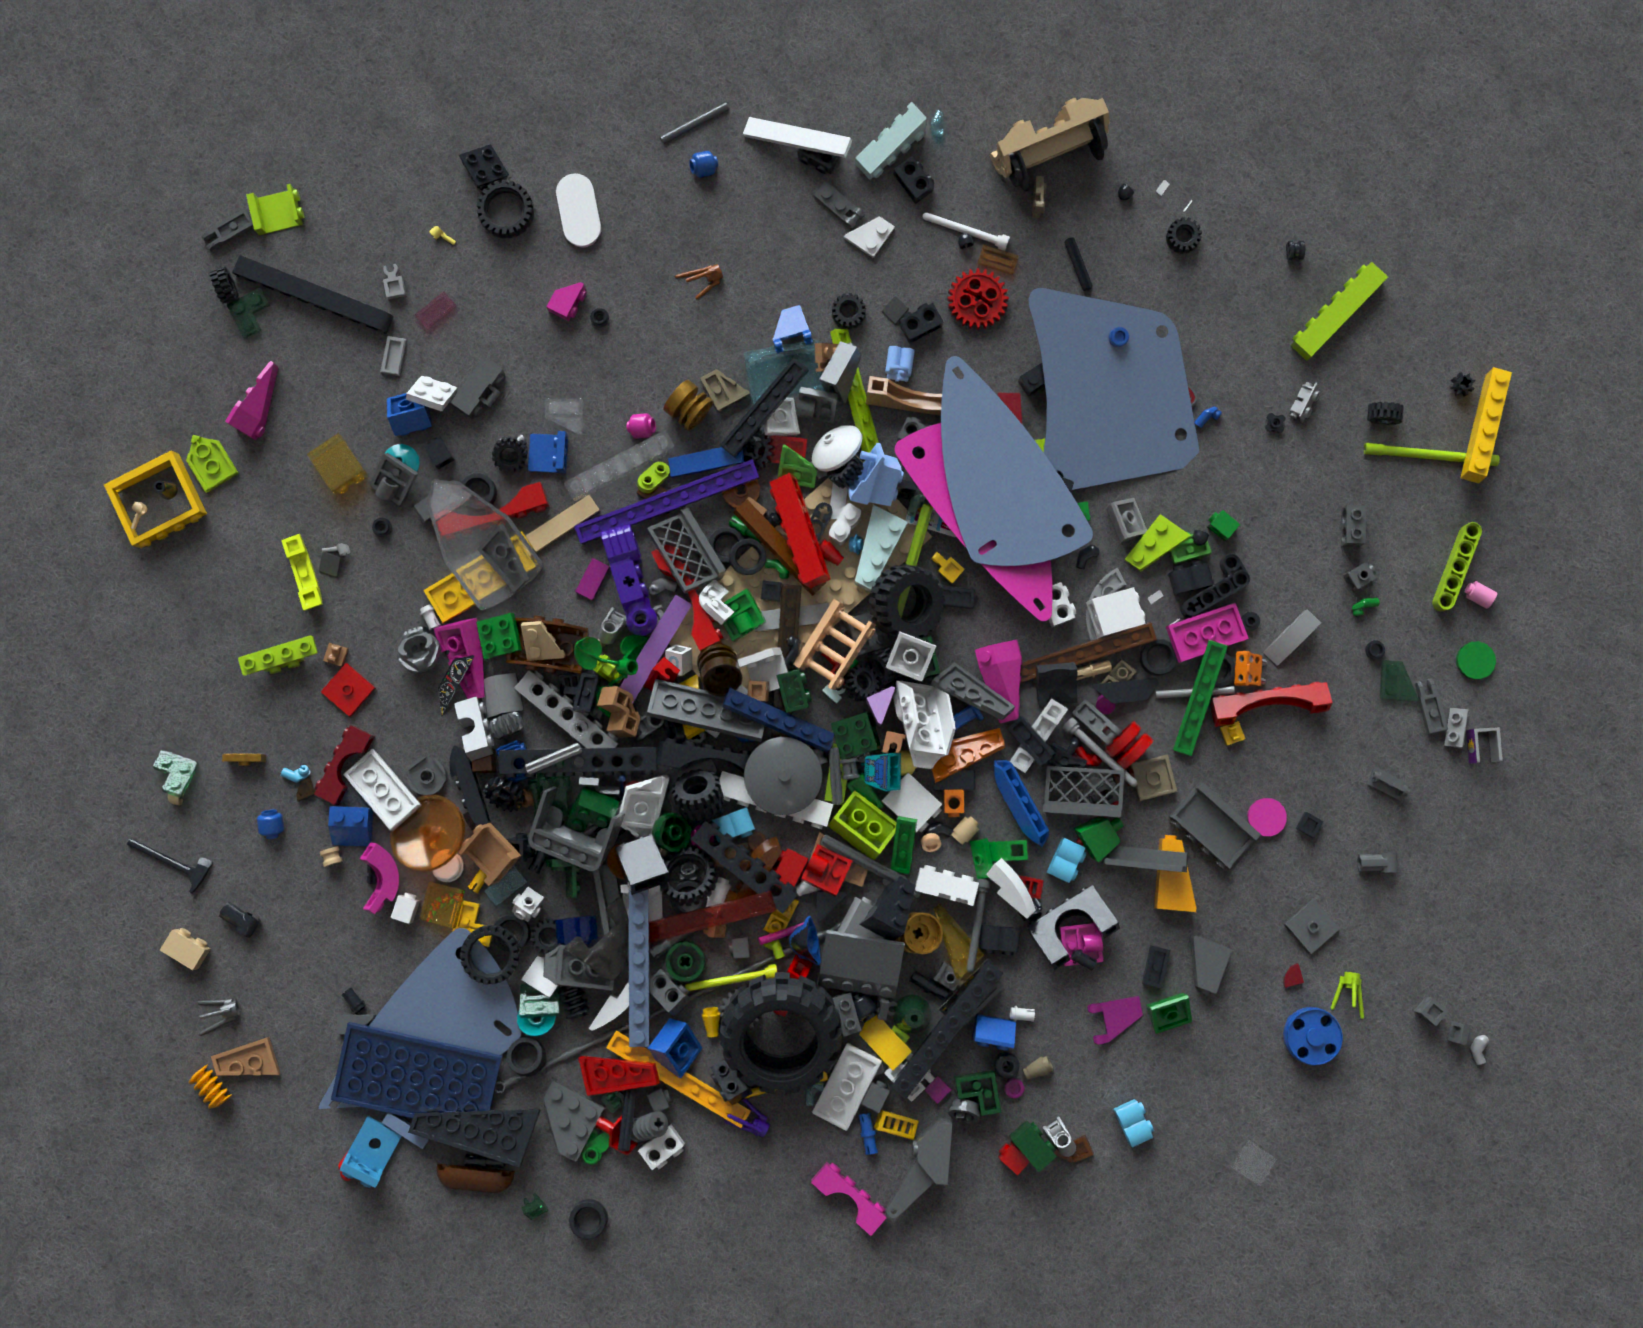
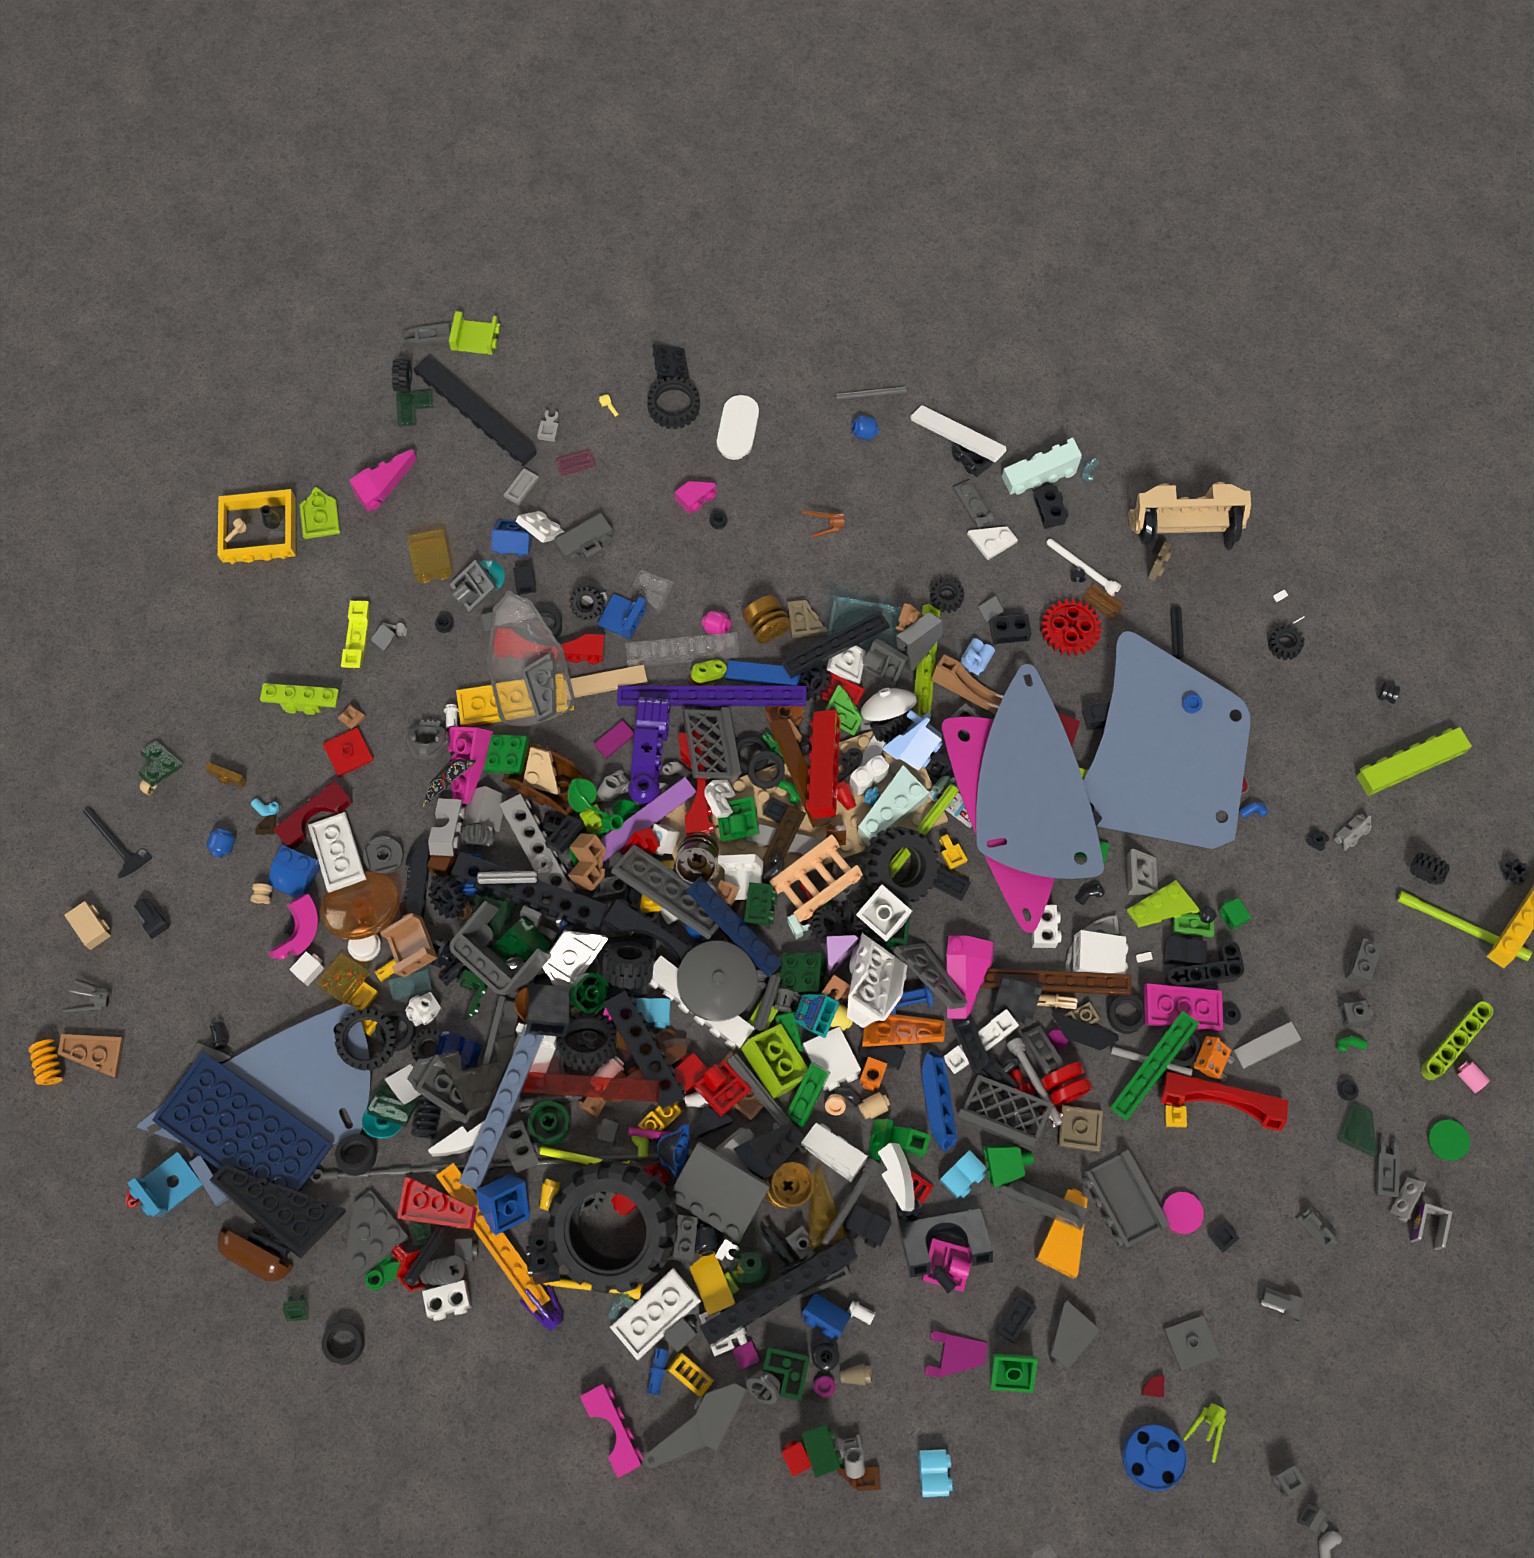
camera: 20 degrees right, 15 degrees down
(791, 324) = (889, 586): flag -> none
(837, 592) = (838, 832): none -> reddish brown tile
(1125, 192) = (1243, 586): black hinge -> none

